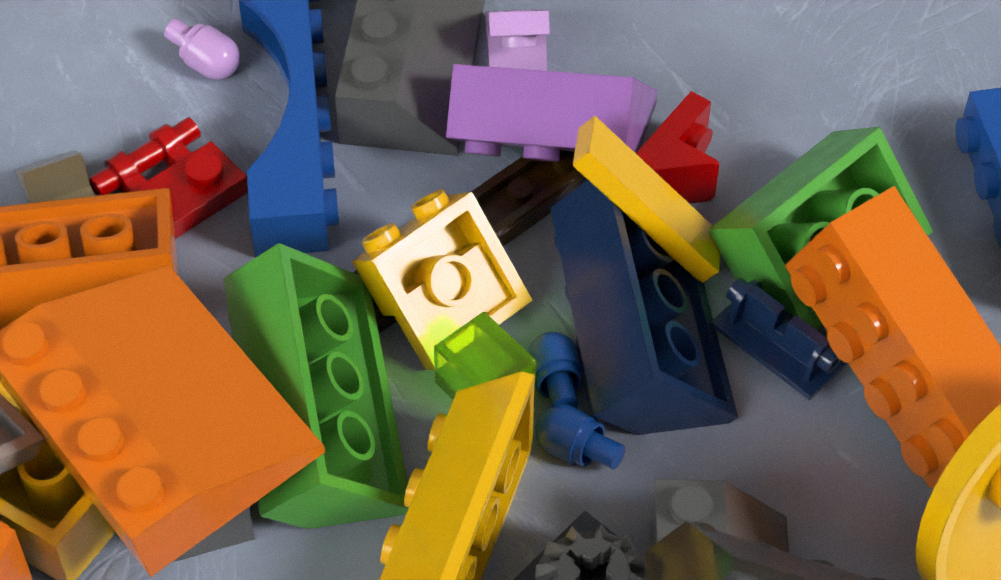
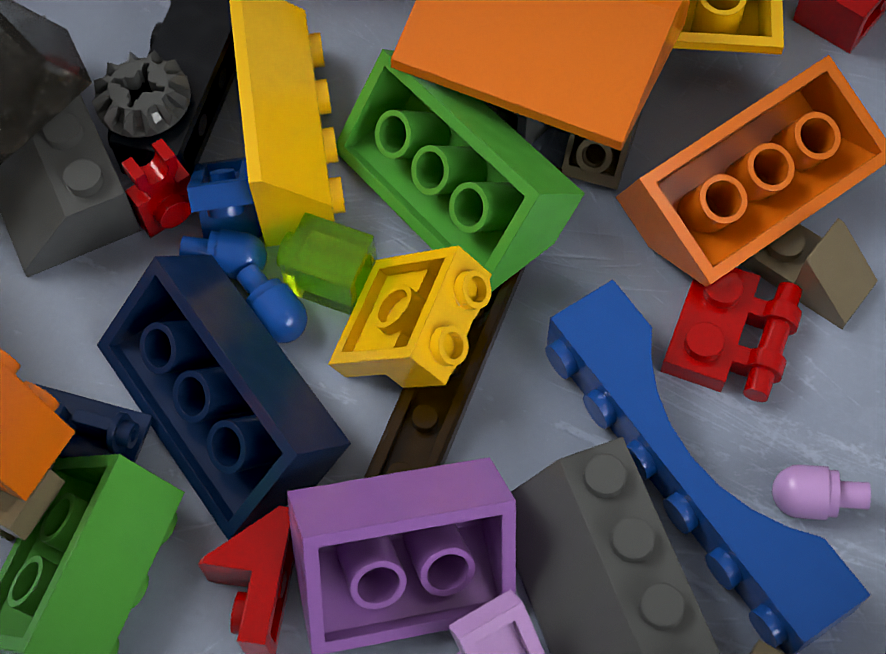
camera: 155 degrees right, 10 degrees up
(547, 478) = (223, 197): none -> blue slope
(619, 496) = (159, 190): none -> red plate
(646, 199) = (249, 458): yellow tile -> none

